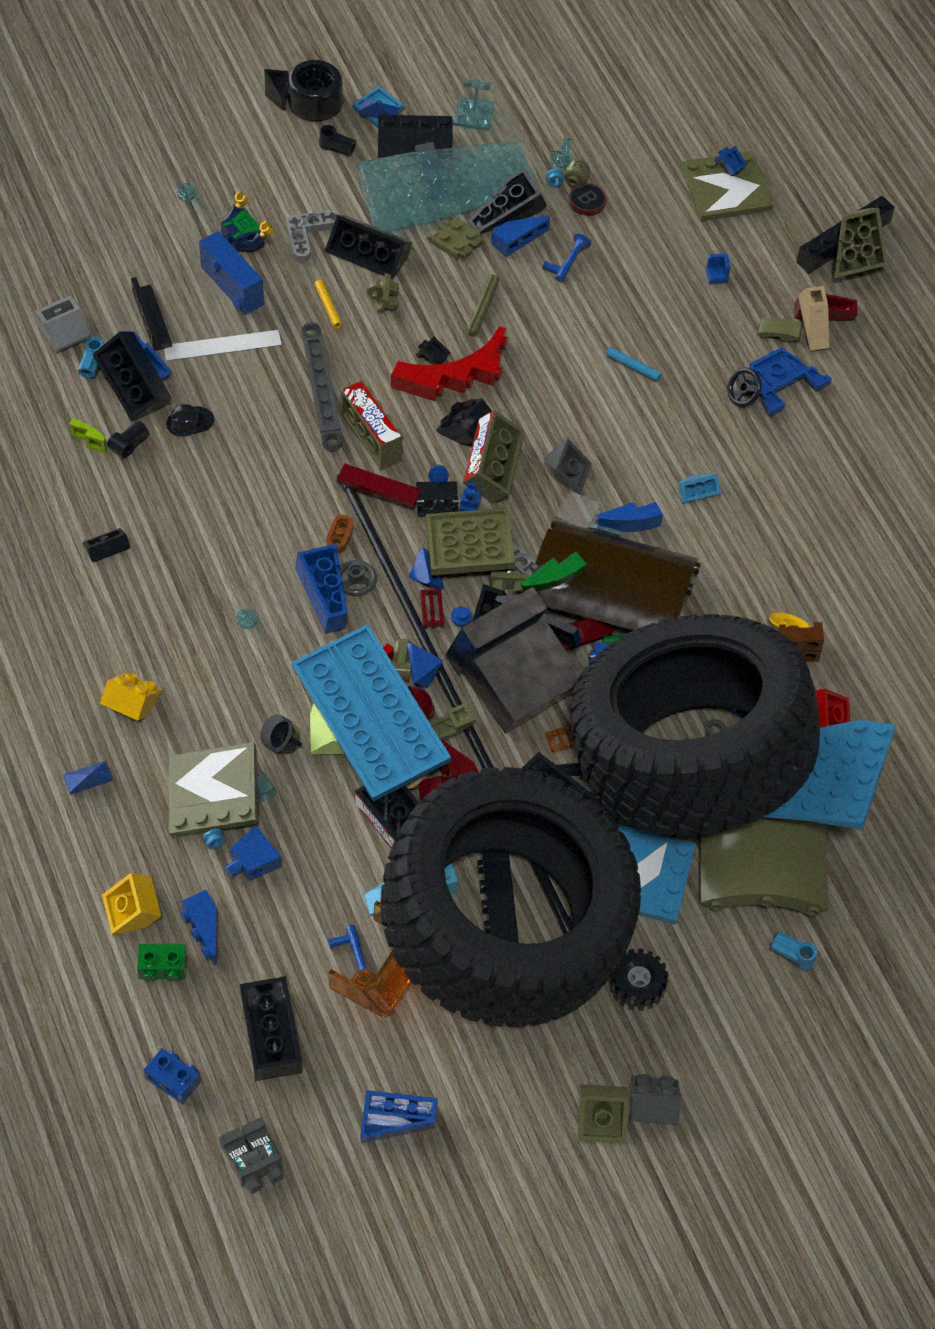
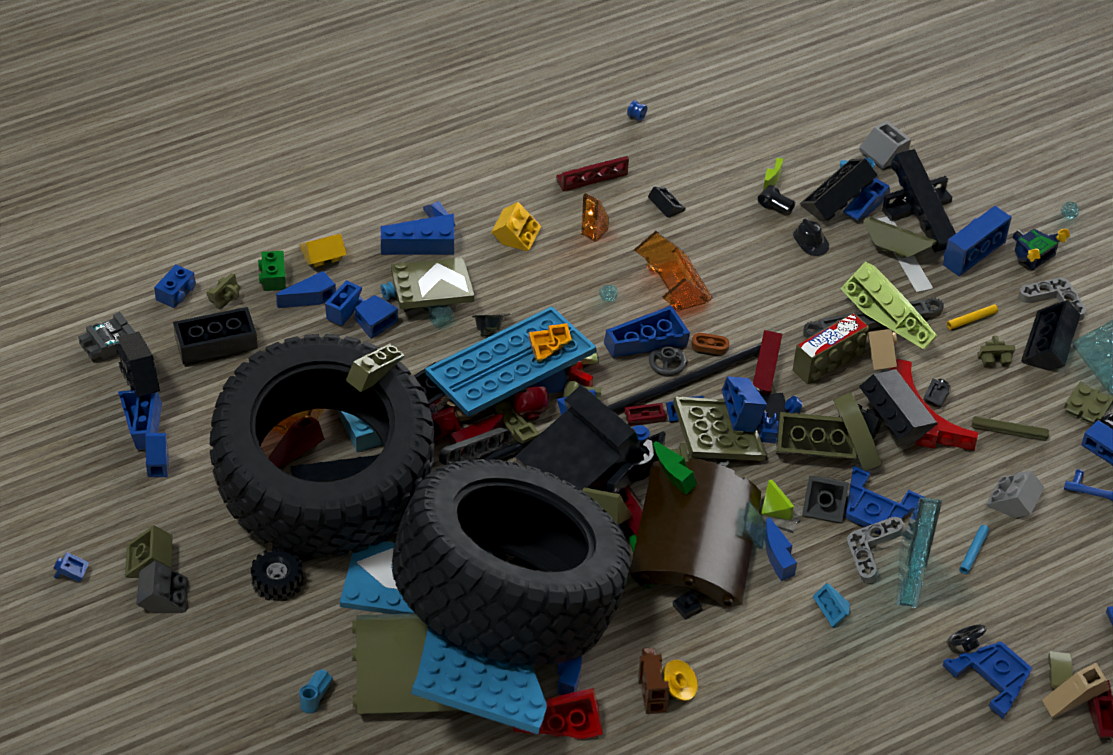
camera: 85 degrees right, 10 degrees down
(47, 609) = (593, 173): none -> dark red fence
(132, 791) = (419, 237): none -> blue wedge
(141, 612) = (594, 218): none -> clear orange slope
(168, 302) = (923, 198): none -> black brick
(179, 1013) = (226, 290): none -> olive hips
(216, 337) = (896, 239): none -> olive wedge
(236, 883) = (342, 303): none -> blue slope
(241, 546) = (676, 271): none -> clear orange windscreen
(320, 365) = (886, 305): none -> yellowish green wedge
(330, 1107) = (137, 364): none -> black brick
(357, 667) = (549, 341): none -> light orange slope
(385, 375) = (882, 348): none -> tan wedge
(445, 510) = (743, 404): none -> blue wedge
(461, 1097) = (157, 455): none -> blue slope
(463, 805) = (372, 367): none -> olive slope
(465, 379) = (898, 406): none -> black slope
(472, 752) = (482, 446): none -> dark grey beam
(499, 414) = (858, 431): none -> olive slope
(570, 508) = (776, 503): none -> lime slope
(572, 317) = (1016, 494): none -> light grey slope
(584, 428) = (869, 507): none -> blue wing
(590, 646) = (611, 503): none -> olive slope
(615, 1200) = (71, 567): none -> blue bracket
(625, 445) = (867, 541): none -> light grey beam
(674, 394) = (915, 550): none -> clear light blue slope
(693, 606) = (687, 605): none -> black tile

